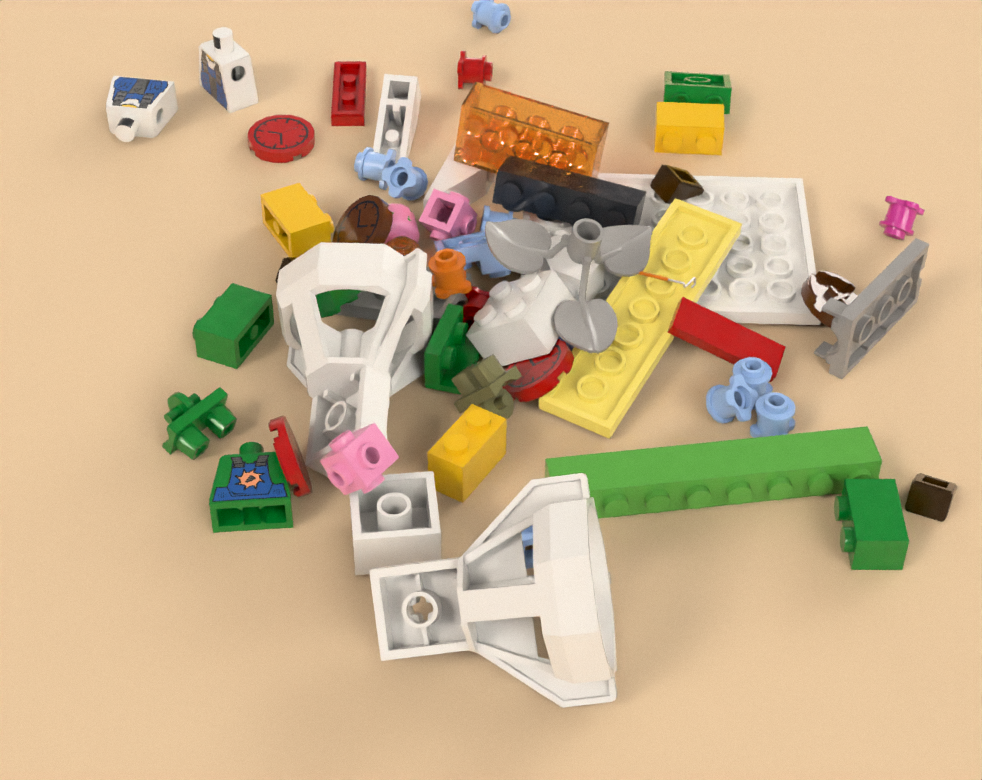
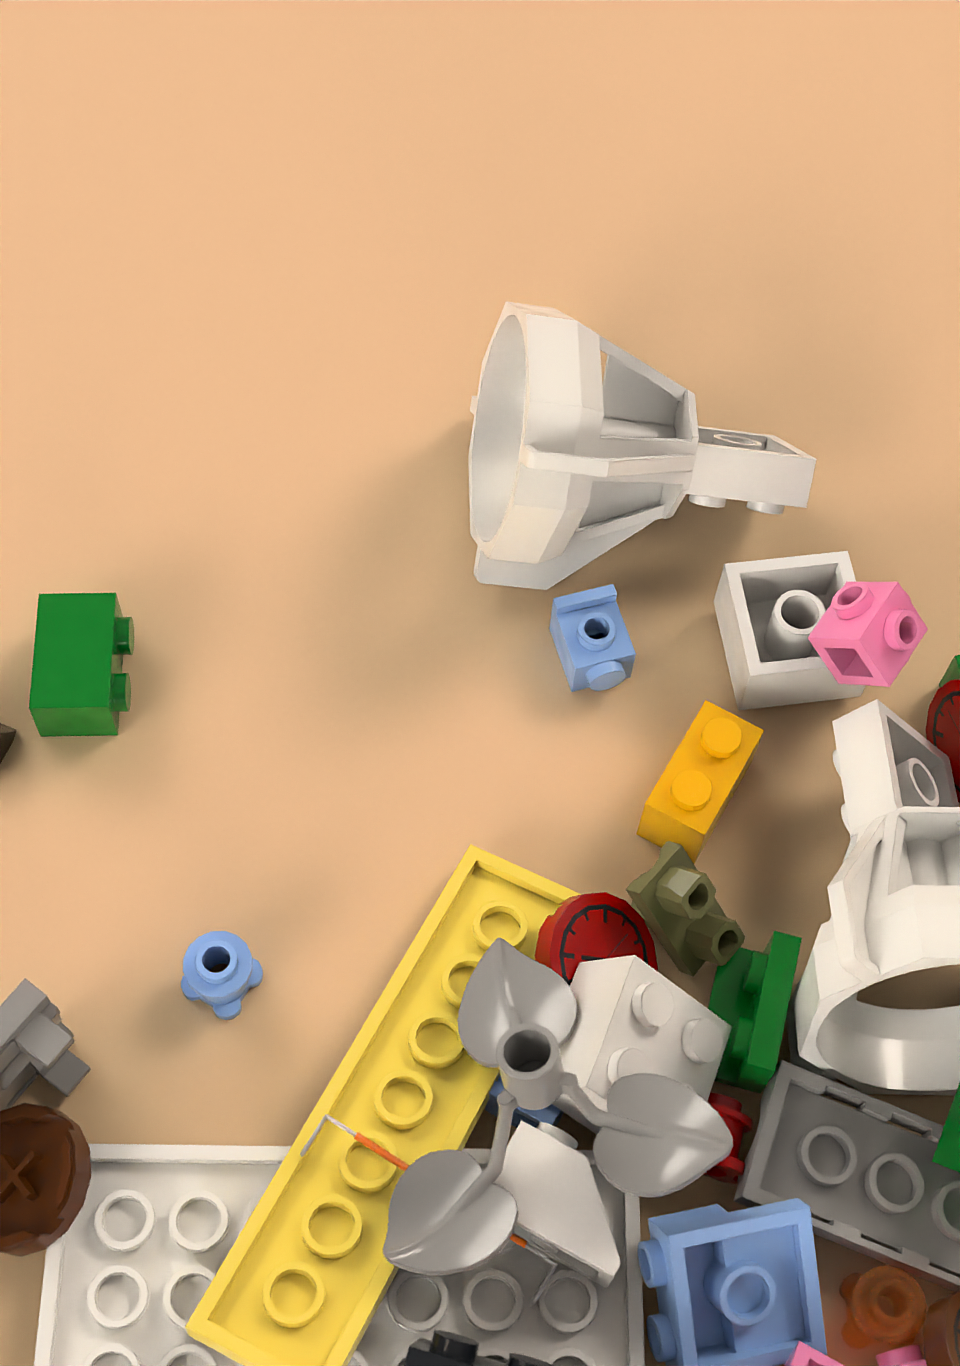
camera: 175 degrees right, 20 degrees up
(448, 273) = (769, 1163): orange brick -> none
(723, 336) = (255, 1043): red tile -> none
(723, 471) = (306, 754): bright green brick -> none
(731, 400) = (263, 905): light blue brick -> none
(773, 415) = (198, 902): light blue brick -> none

